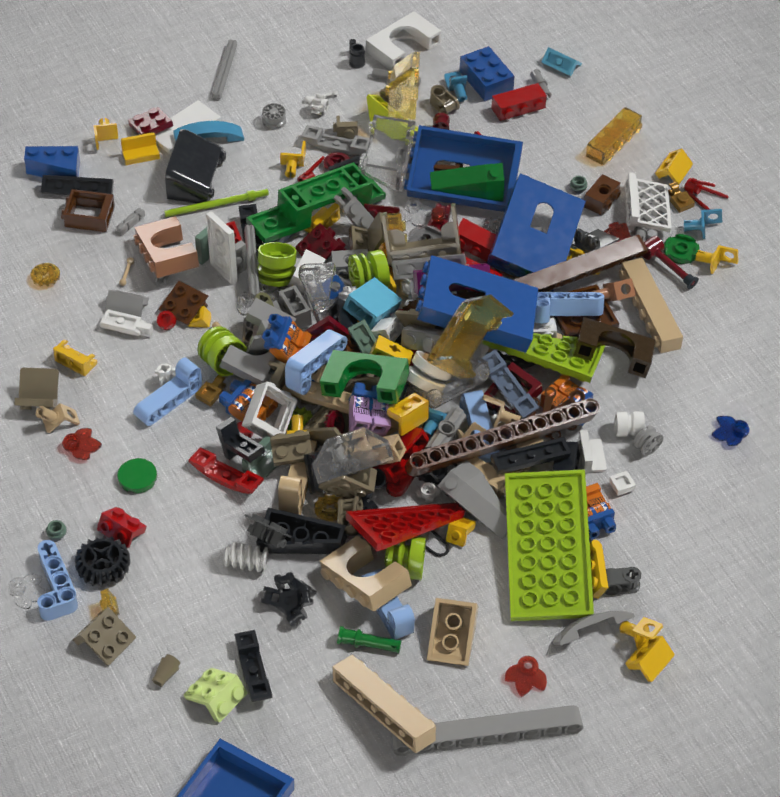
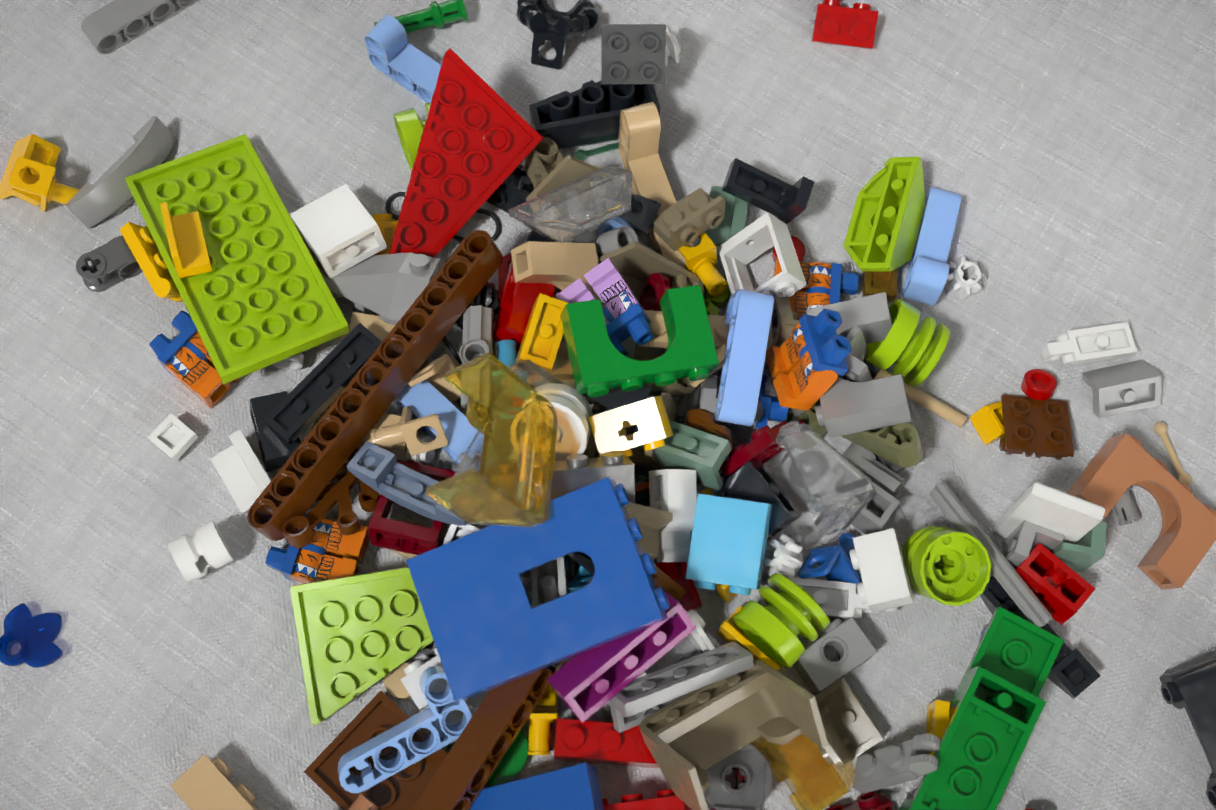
camera: 150 degrees right, 20 degrees up
(37, 388) = (1108, 151): dark tan bracket -> none
(55, 417) = (1055, 133): tan bracket -> none
(73, 359) = (1114, 246): yellow hinge -> none
(81, 443) = (988, 121): clear red plate -> none
(137, 475) = (881, 110): green tile -> none
(187, 414) = (887, 216): none -> lime wedge
(224, 474) = (720, 153): red slope -> none
(250, 195) = (1104, 731): lime bar -> none
(321, 242) = (905, 675): dark red bracket -> none
(371, 590) = (512, 82): tan arch -> none
(452, 631) = (316, 81): tan slope -> none
(485, 534) = (338, 230): none -> white panel
(526, 678) = (189, 70): clear red plate -> none
(573, 549) = (186, 242): none -> yellow panel
(635, 346) = (243, 722): dark brown arch -> none
(648, 440) = (156, 530): light grey wheel -> none

